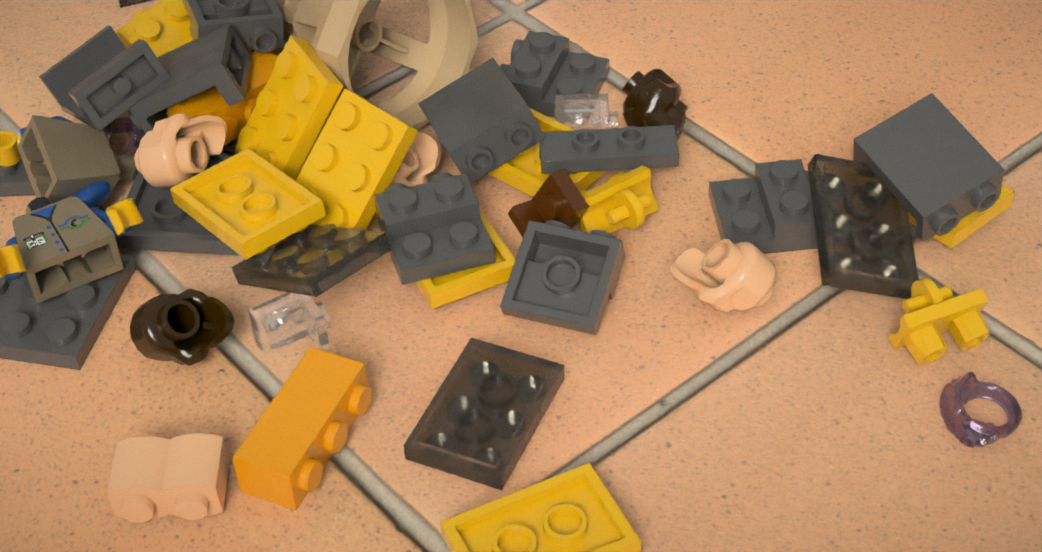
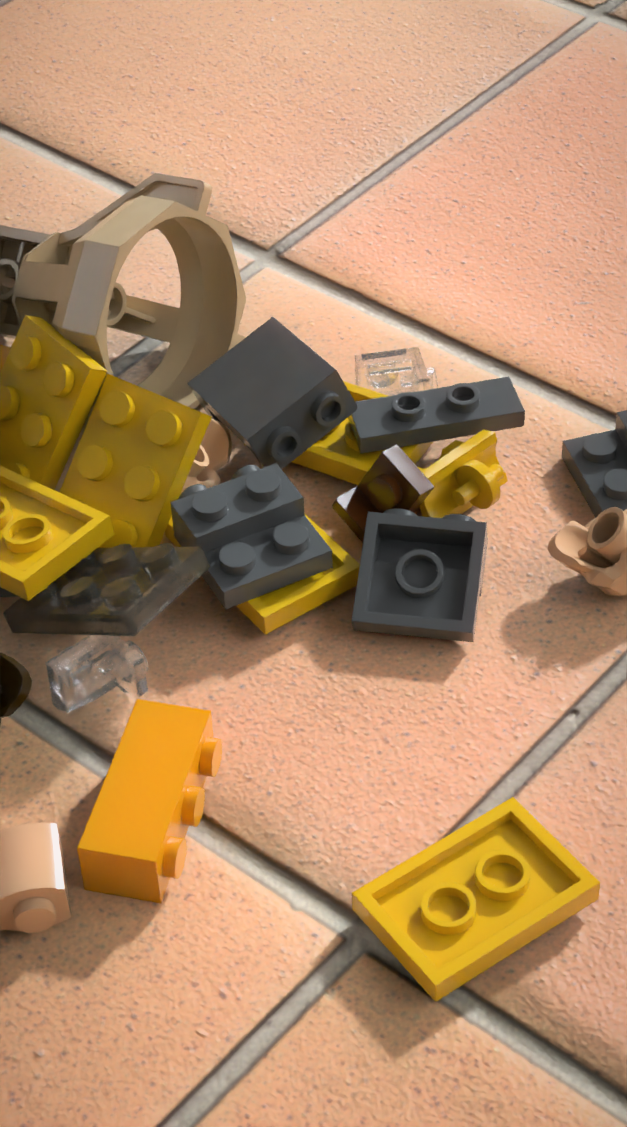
camera: 10 degrees left, 0 degrees up
(485, 413) = (367, 753): clear smoke plate -> none
(546, 68) = (340, 327): dark grey plate -> none
(654, 101) = (474, 350): dark brown head -> none

